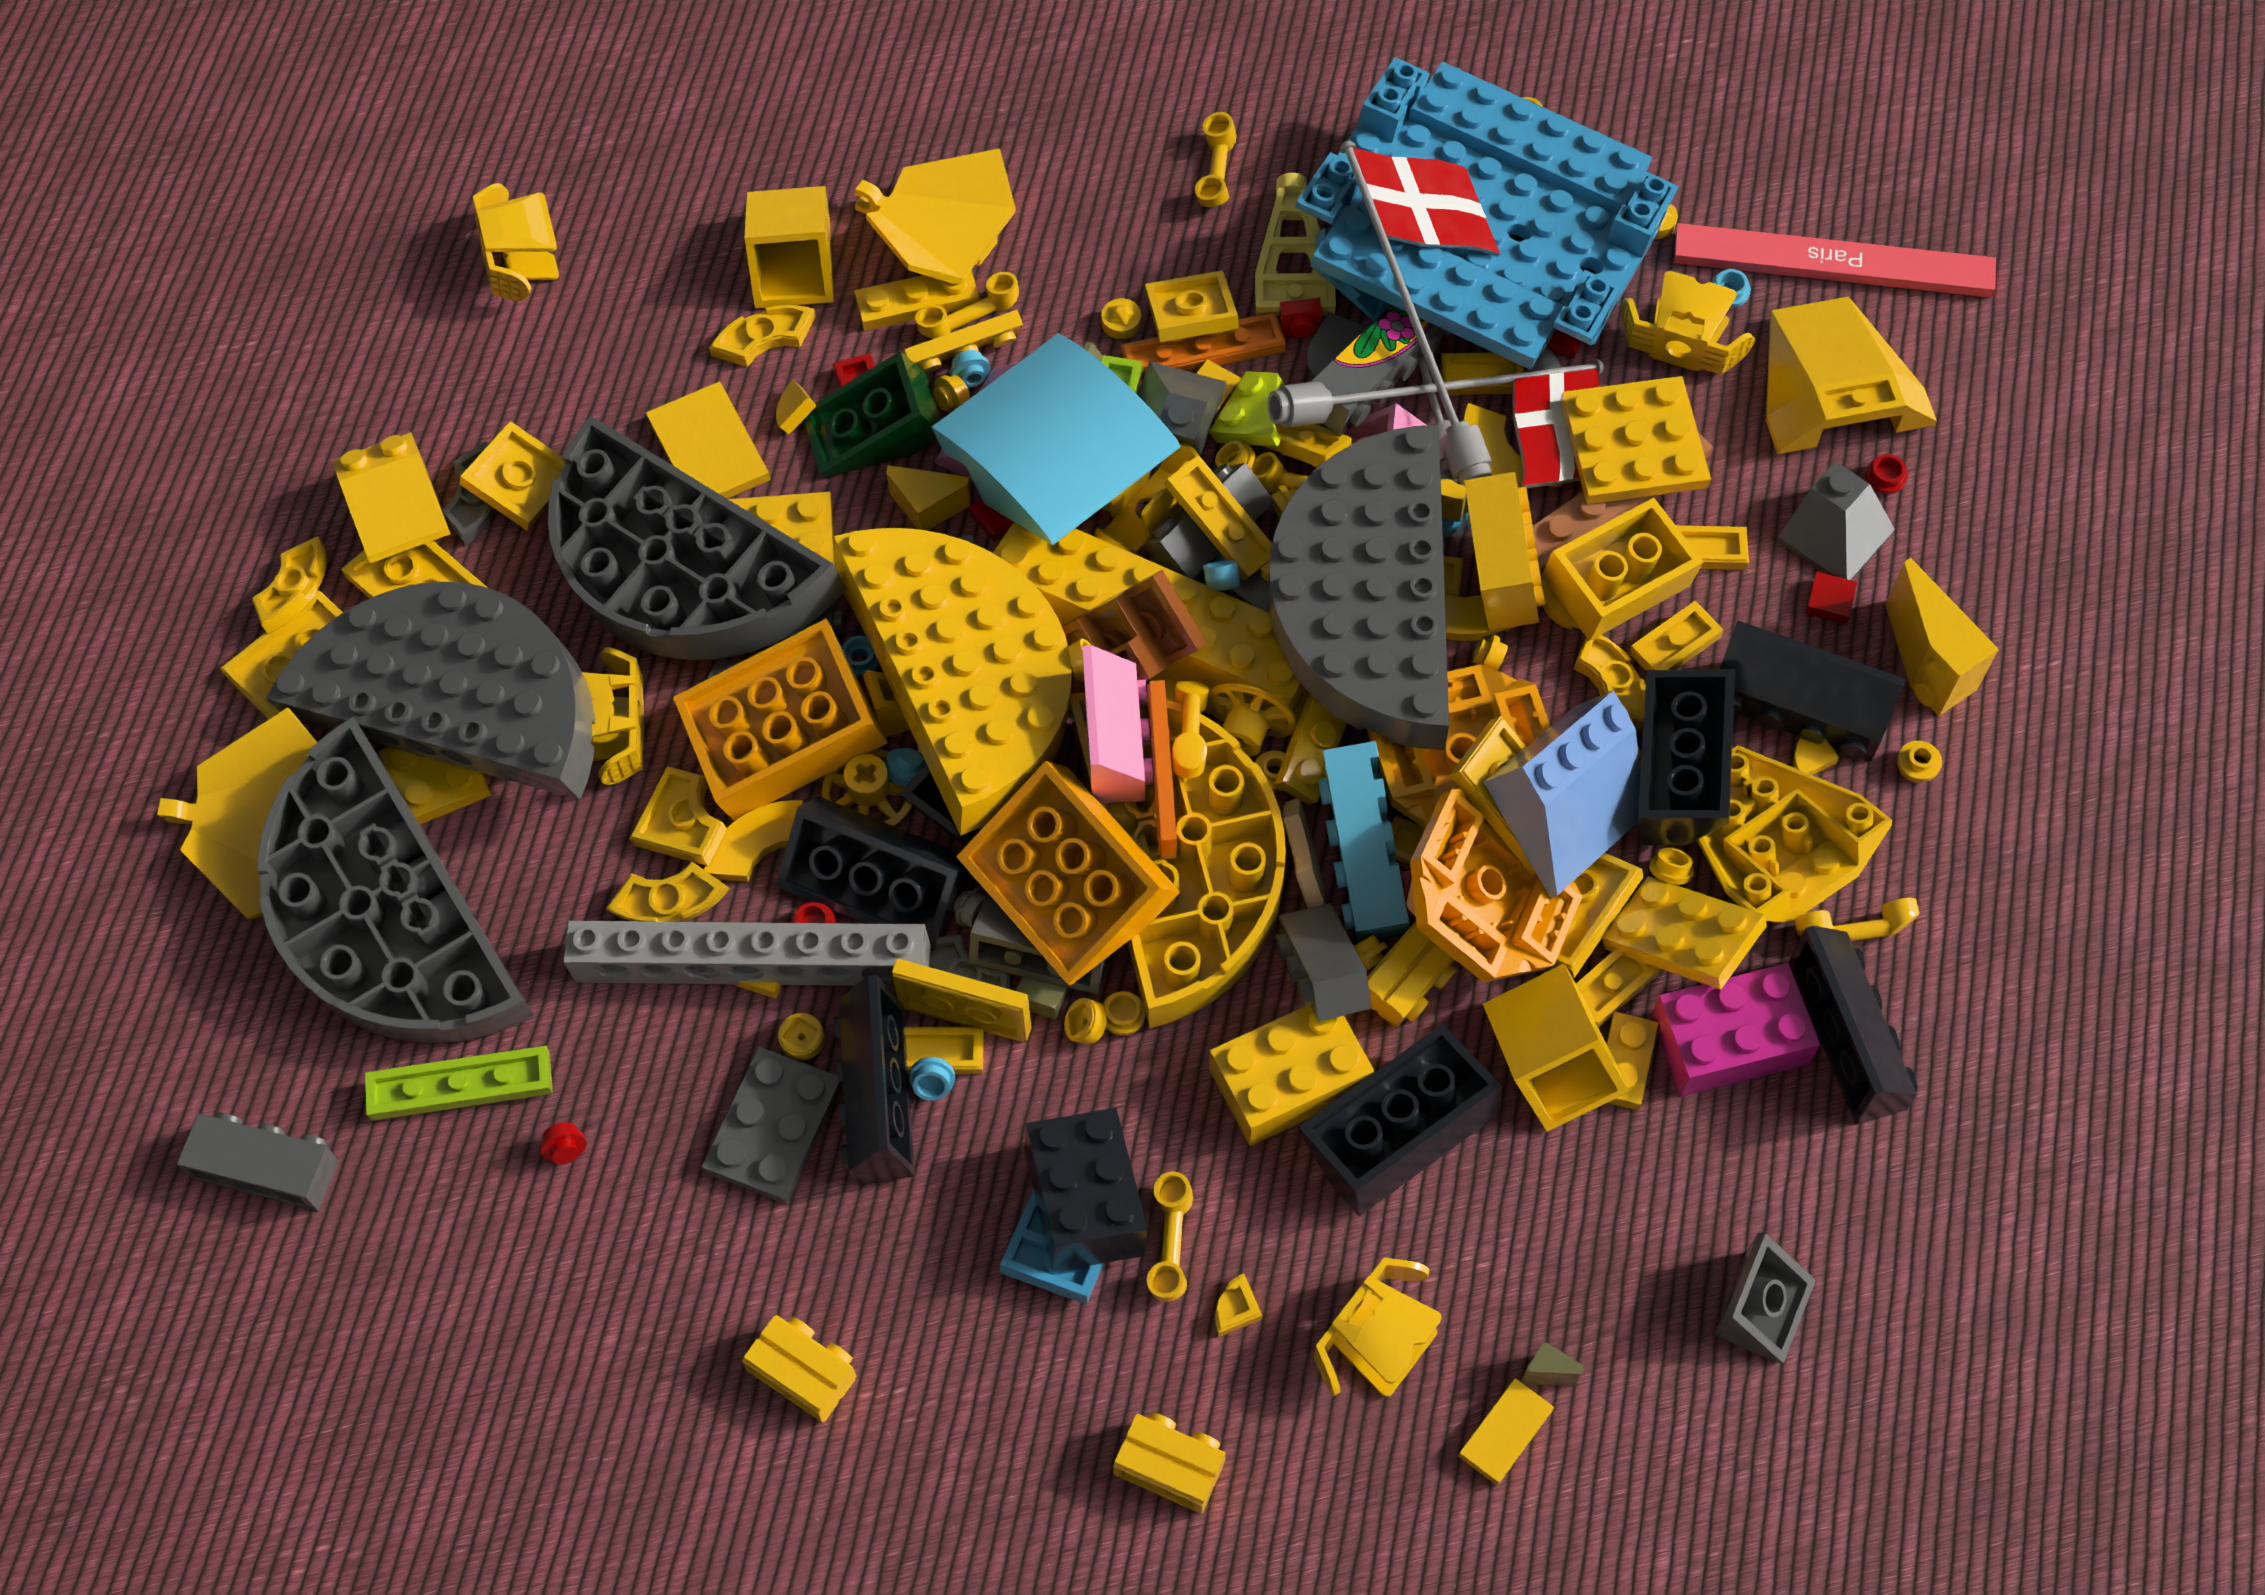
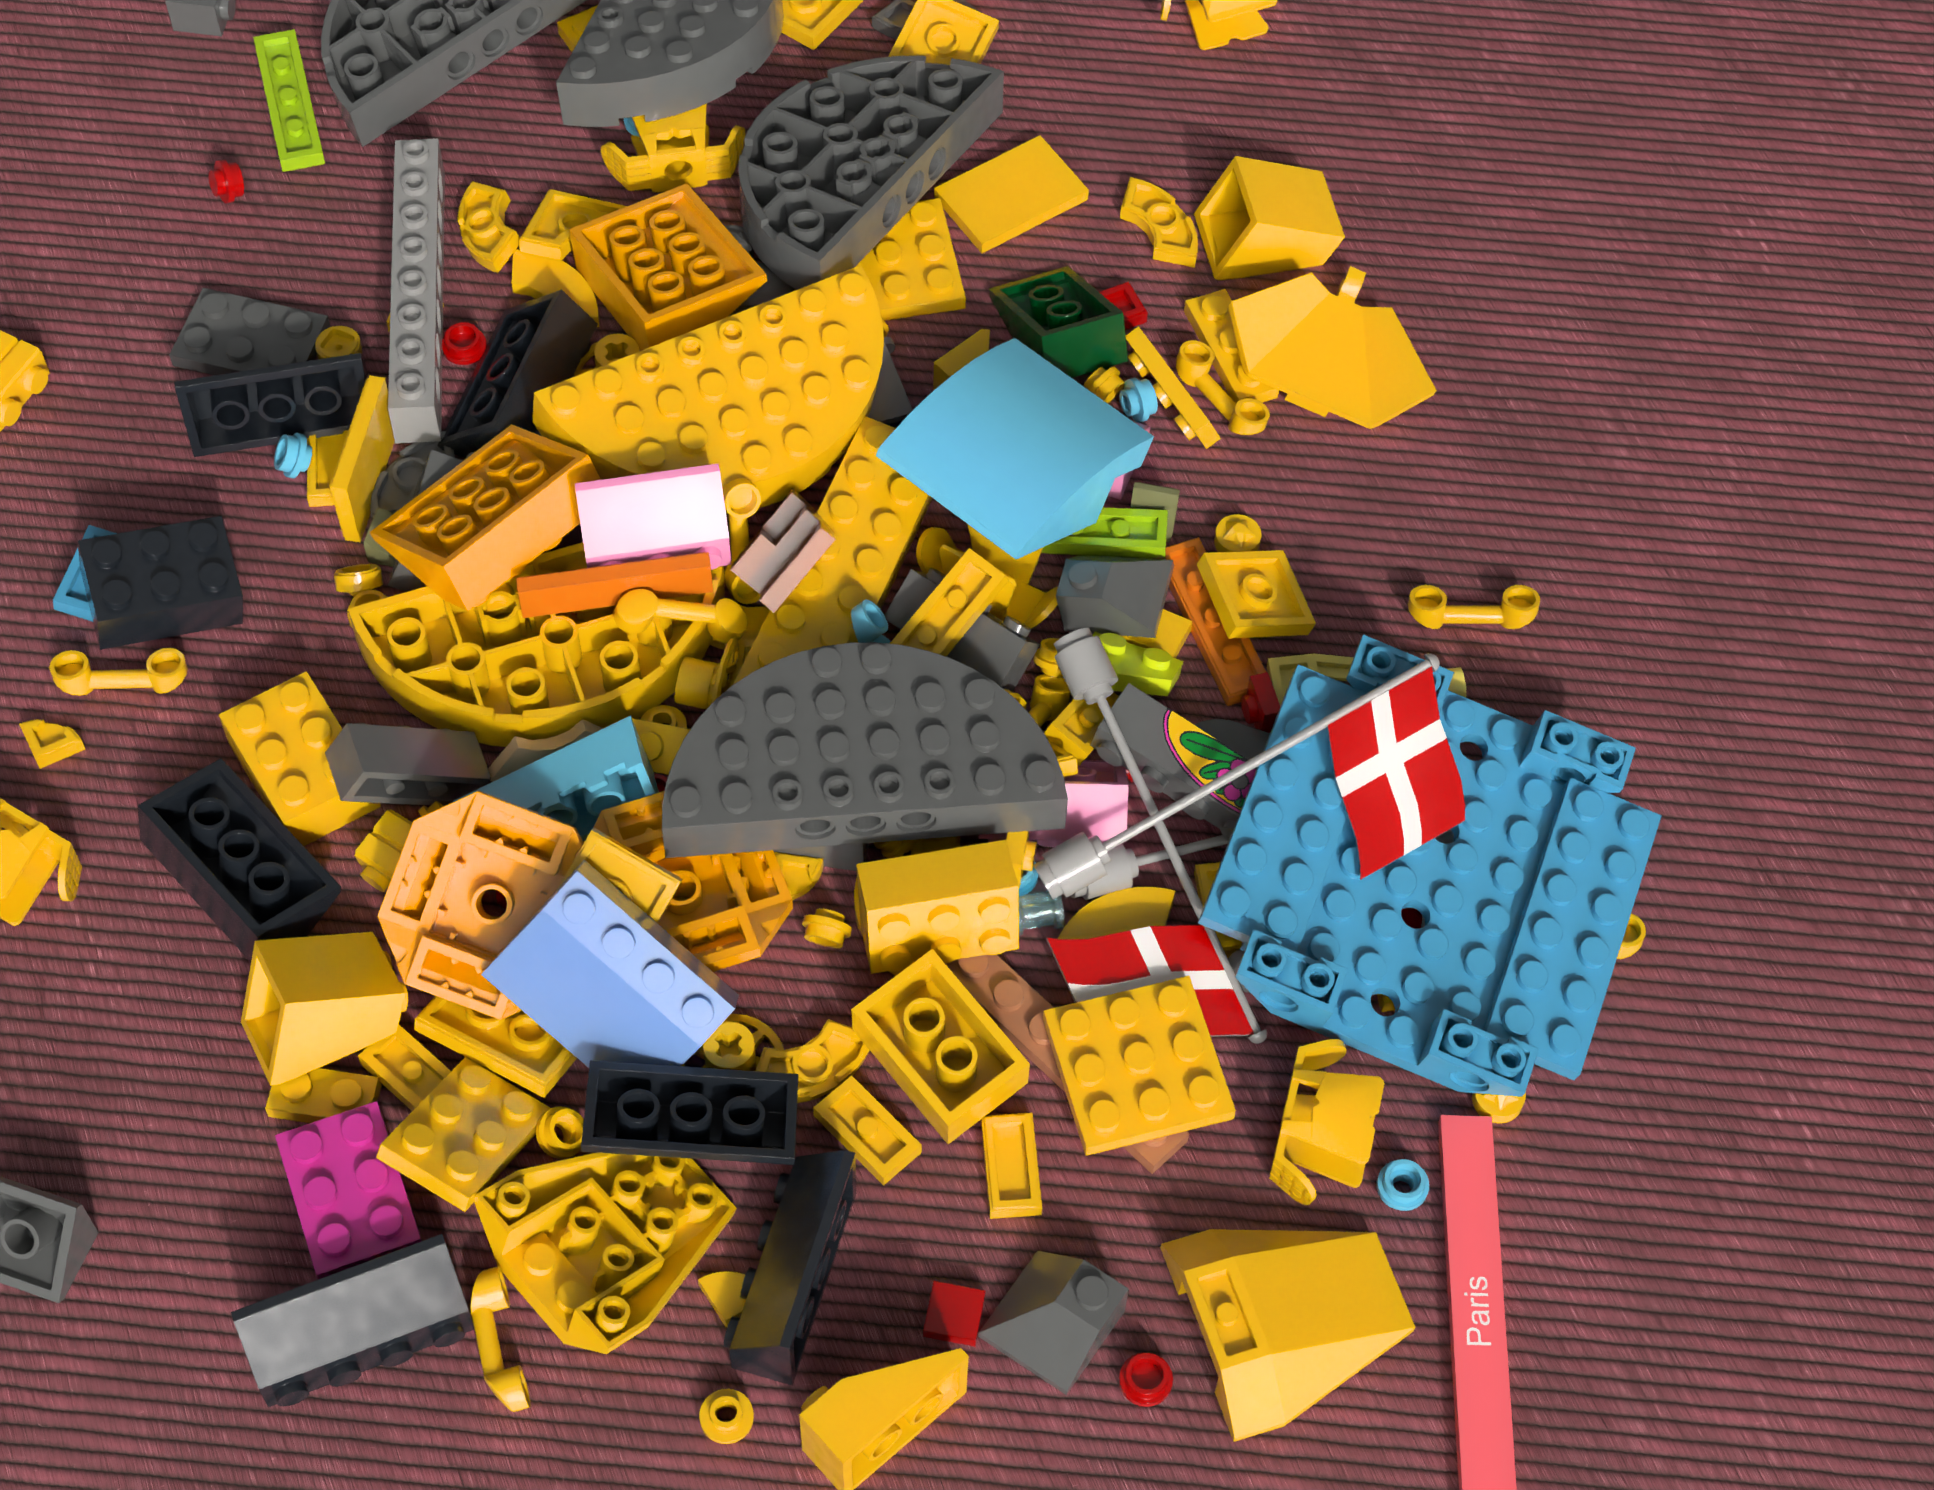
camera: 80 degrees right, 5 degrees down
(793, 407) = (1068, 255): yellow tile -> none

